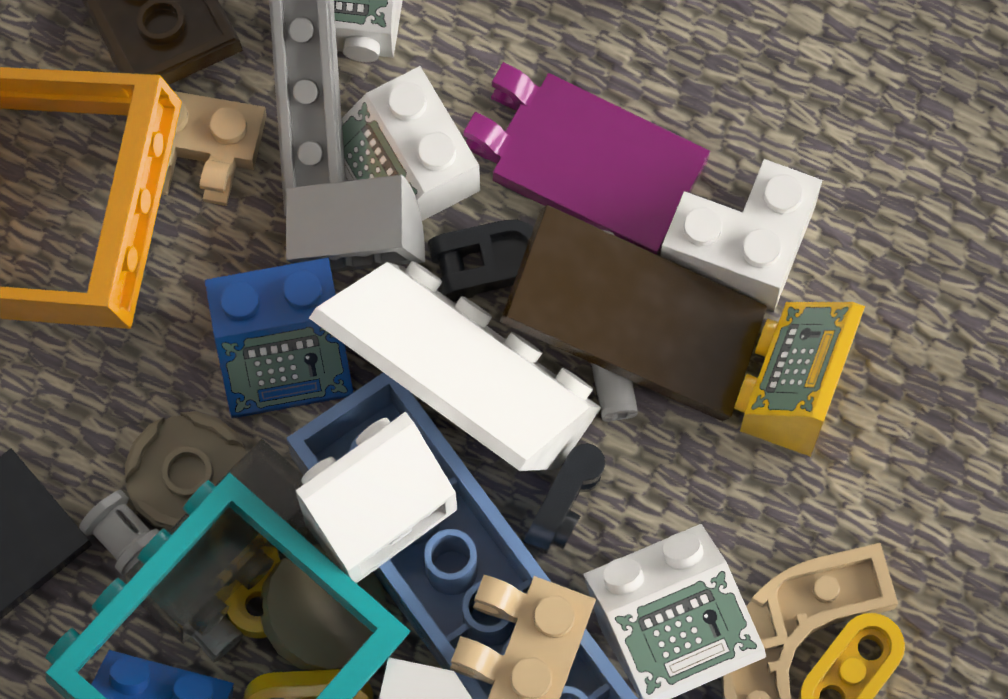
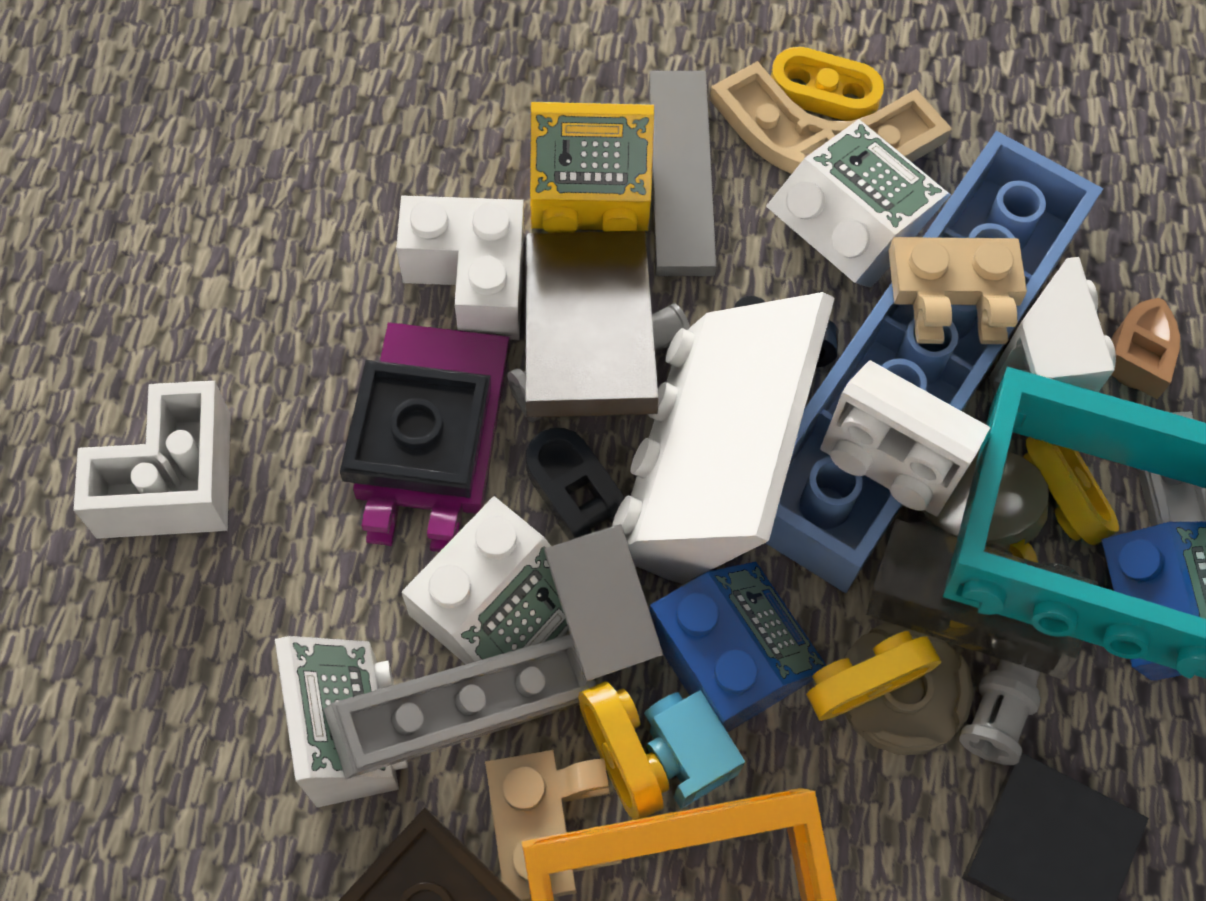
camera: 115 degrees left, 5 degrees down
(198, 450) = (896, 664): none -> yellow plate
(202, 257) = (692, 745): none -> medium azure brick
(247, 206) = (612, 725): none -> yellow plate
(582, 136) = (416, 429): none -> black tile
(796, 485) = (682, 175): none -> light grey tile

